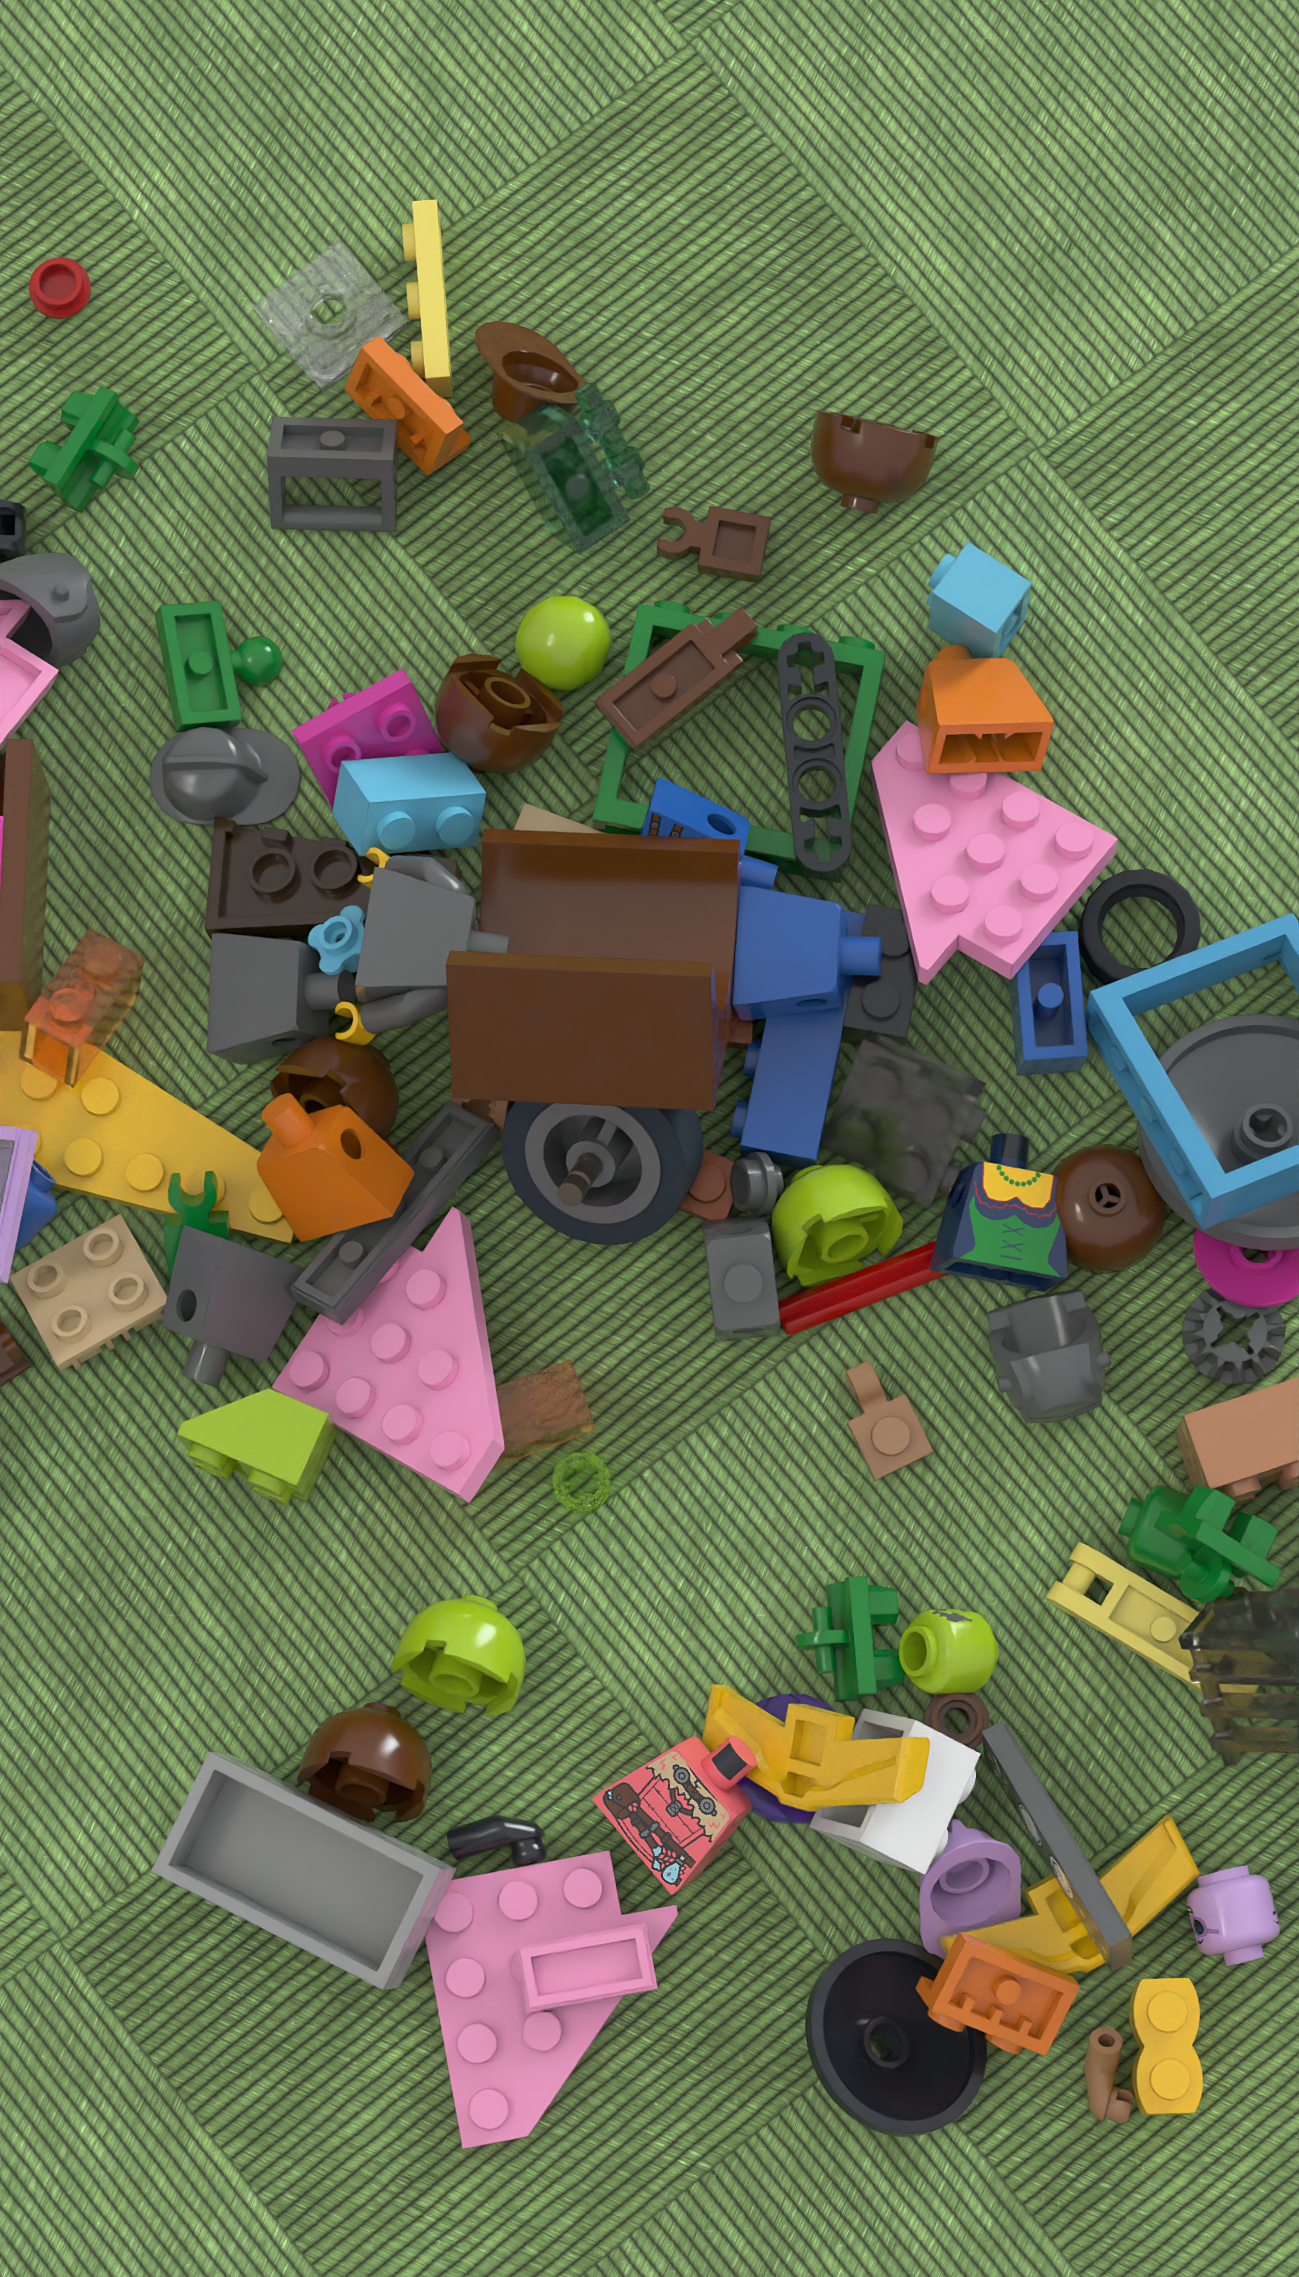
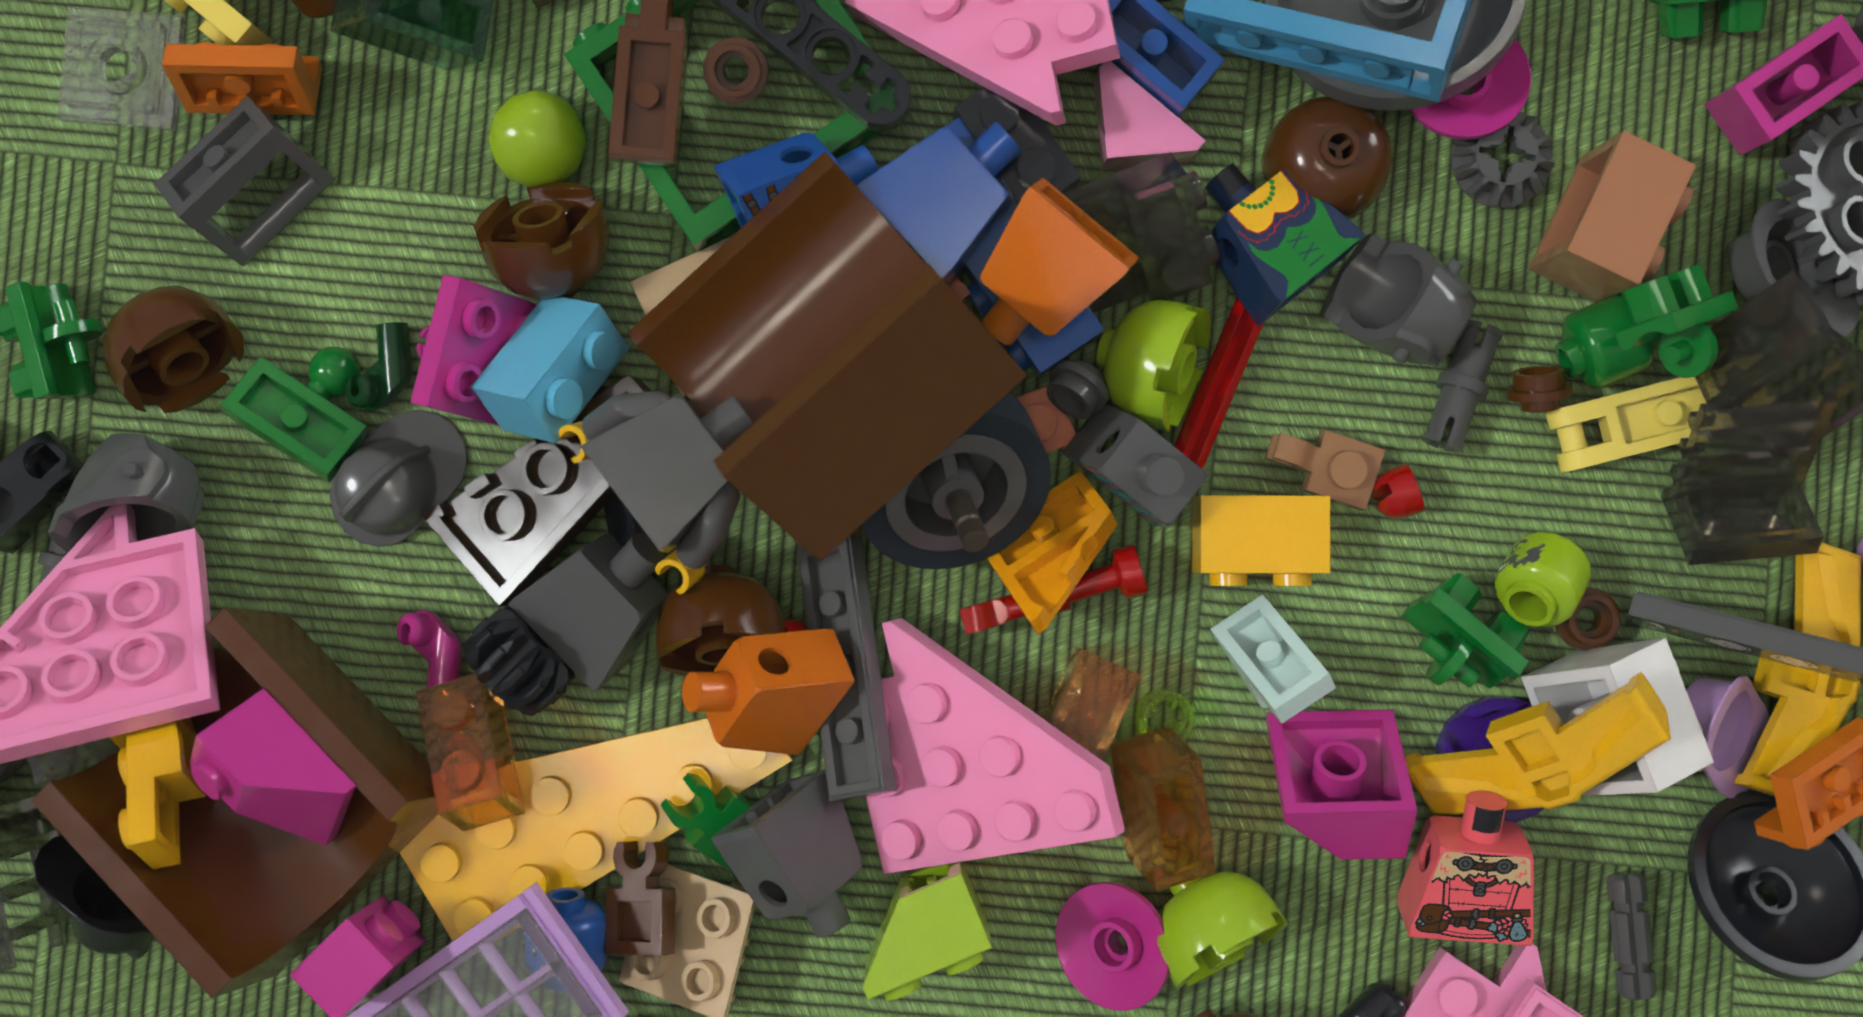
camera: 55 degrees left, 10 degrees up
(83, 1234) = (639, 911): none -> reddish brown plate
(130, 910) = (434, 642): none -> dark pink arm
(167, 535) = (170, 348): none -> reddish brown cylinder
(176, 979) = (516, 663): none -> black gear
(293, 700) = (389, 374): none -> dark green arm
(339, 941) = (594, 524): medium azure plate -> none
(377, 1596) = (1095, 957): none -> dark pink dish
(512, 1530) = (1163, 808): none -> clear orange brick
(625, 1278) = (1055, 550): none -> light orange wing
(657, 1348) = (1123, 574): none -> red piece
(658, 1649) = (1344, 781): none -> dark pink slope
(699, 1510) = (1272, 659): none -> light aqua slope
(724, 730) = (715, 73): none -> reddish brown plate
(754, 1980) = (1631, 935): none -> dark grey axle
(779, 1420) = (1260, 536): none -> yellow brick
(817, 1069) = (1049, 265): none -> orange torso
(911, 1492) = (1398, 493): none -> red hinge
(987, 1047) = (1136, 125): none -> bright pink slope
(1035, 1463) = (1462, 386): none -> dark grey pin
(1088, 1518) = (1539, 388): none -> reddish brown plate
(1146, 1741) = (1743, 481): none -> clear smoke plate

